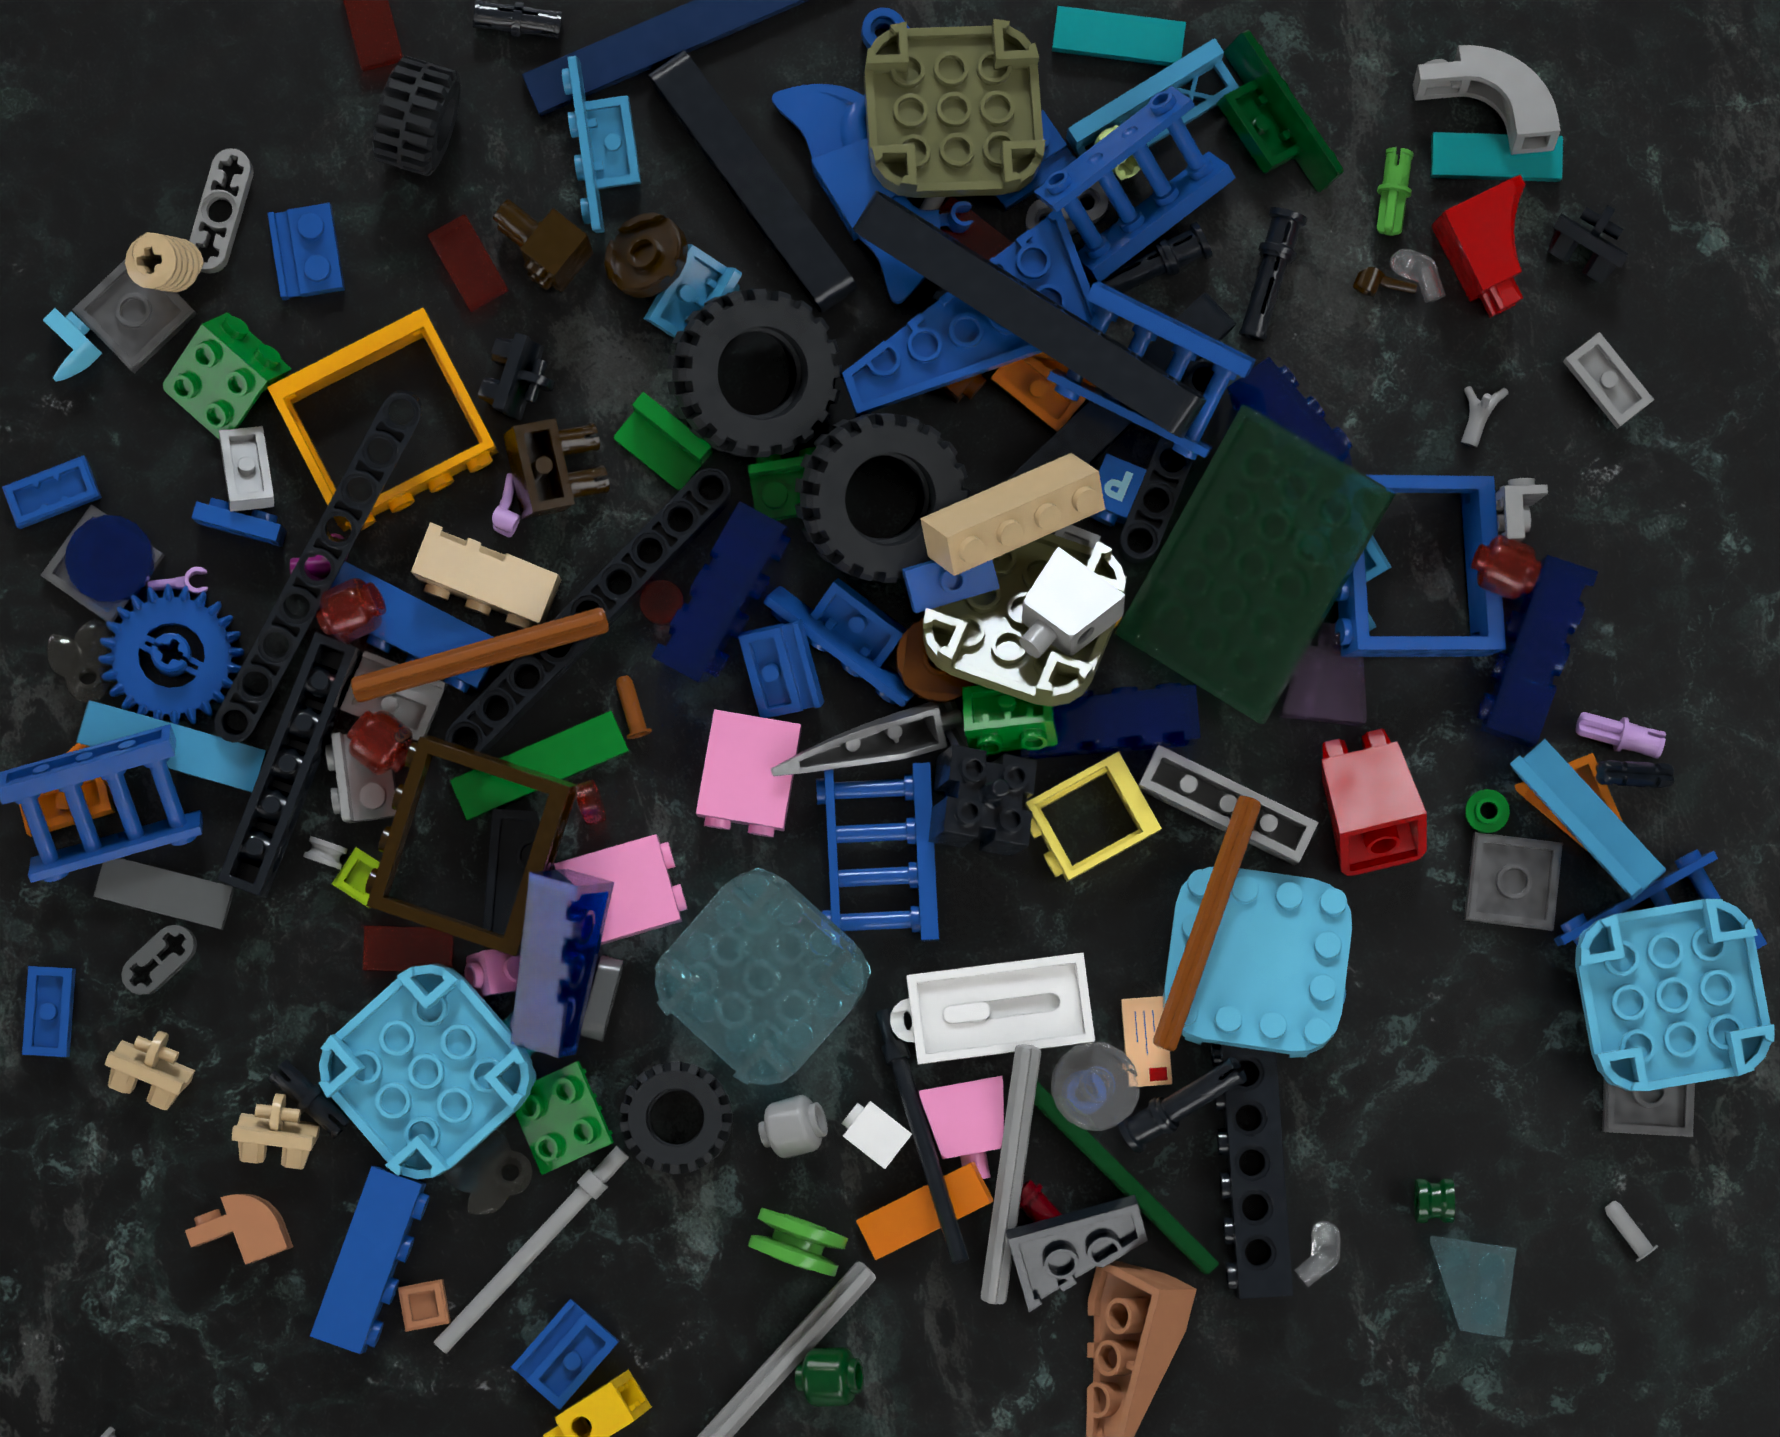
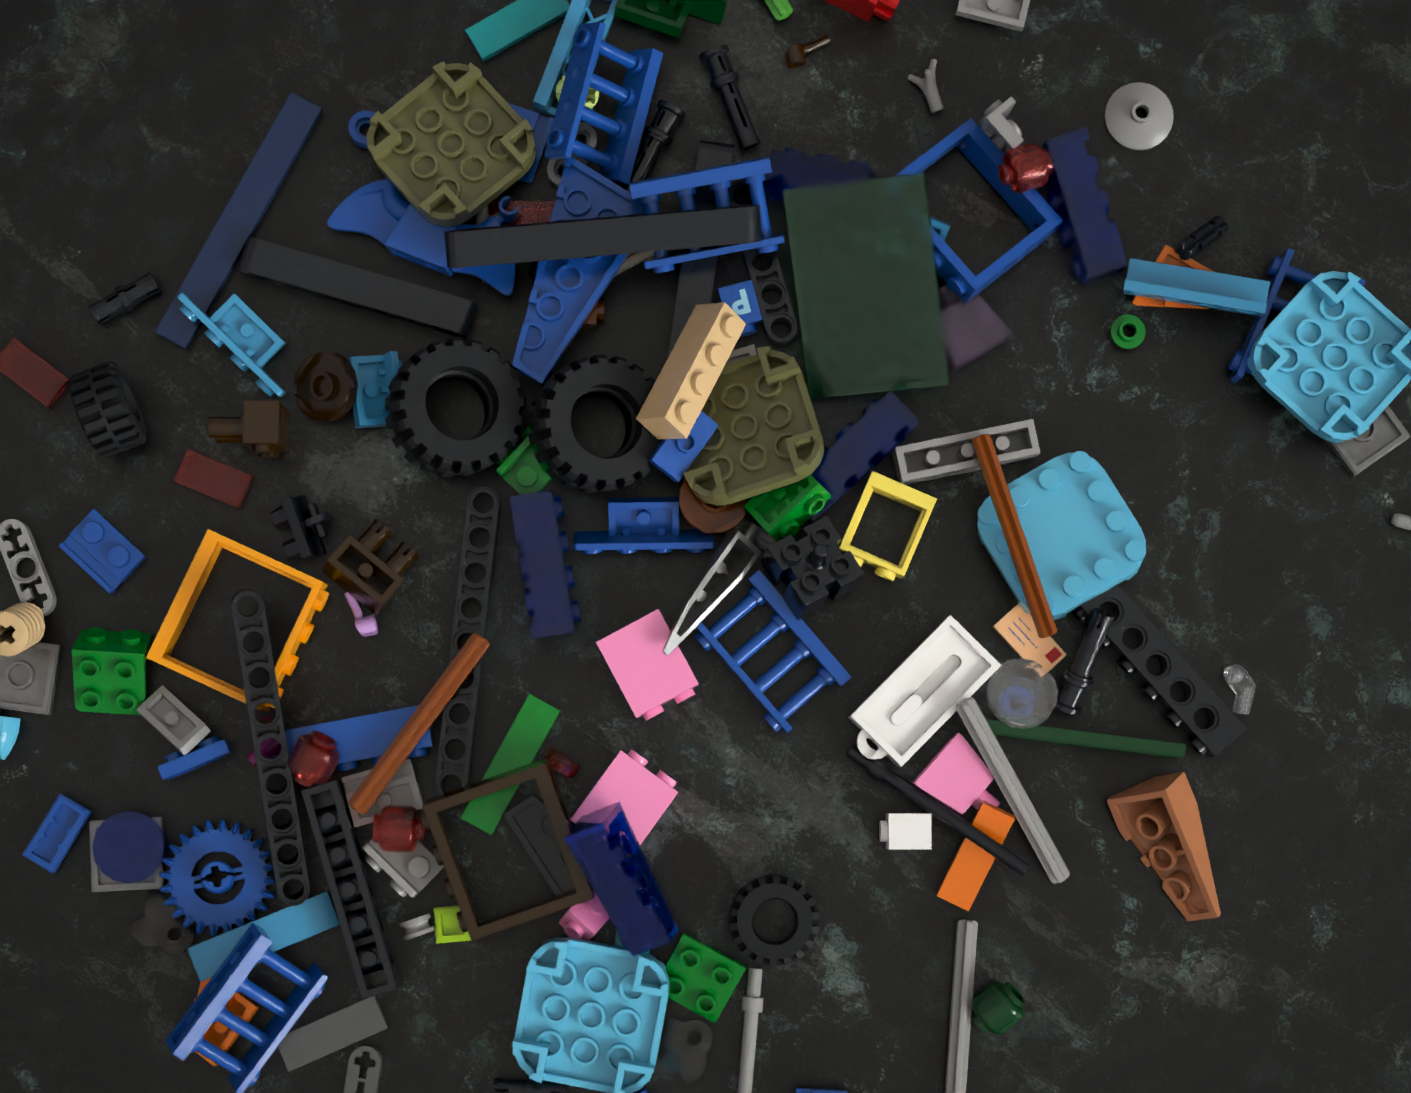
camera: 45 degrees left, 0 degrees up
(179, 582) = (186, 826): lavender hand -> none
(405, 947) = (515, 947): clear red tile -> none
(485, 578) = (383, 672): tan wedge -> none
(602, 998) = (666, 880): dark grey beam -> none
(631, 708) = (540, 682): dark orange piece -> none
(660, 602) = (507, 600): clear red tile -> none
(662, 442) = (429, 498): green panel -> none
(761, 977) = (759, 788): clear light blue plate -> none
(781, 669) = (617, 583): blue plate -> none
(793, 1126) = (851, 867): light grey head -> none
(798, 1242) = (913, 938): bright green wheel -> none
(1029, 385) = (636, 282): orange wing -> none
(1035, 1203) = (1046, 797): dark red pin -> none
(1066, 1246) = (1081, 809): wing -> none
(1068, 607) = (772, 403): torso -> none
(1373, 805) = (1055, 381): hips -> none
(1419, 269) = (822, 24): clear arm -> none
(1434, 1200) = (1285, 600): dark green wheel -> none
(1477, 1282) = (1351, 631): clear light blue wing -> none
(1513, 881) = (1177, 363): flat silver tile -> none
(1621, 734) = (1173, 219): lavender axle -> none
(1653, 617) = (1127, 127): none -> light grey dish

